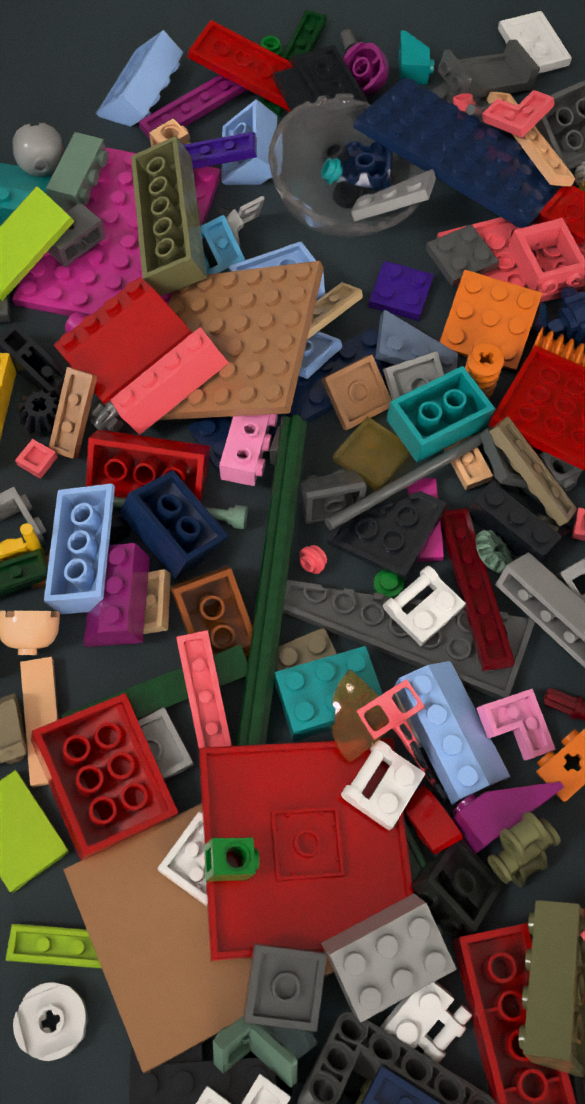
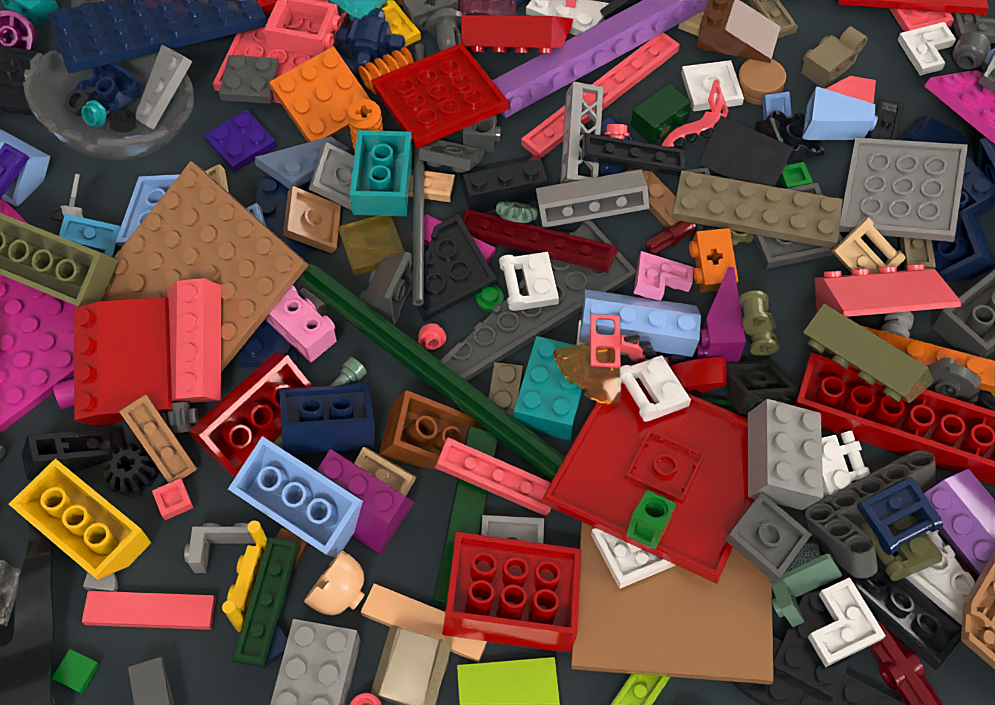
camera: 55 degrees left, 5 degrees down
(534, 472) = (466, 142): dark tan plate -> none

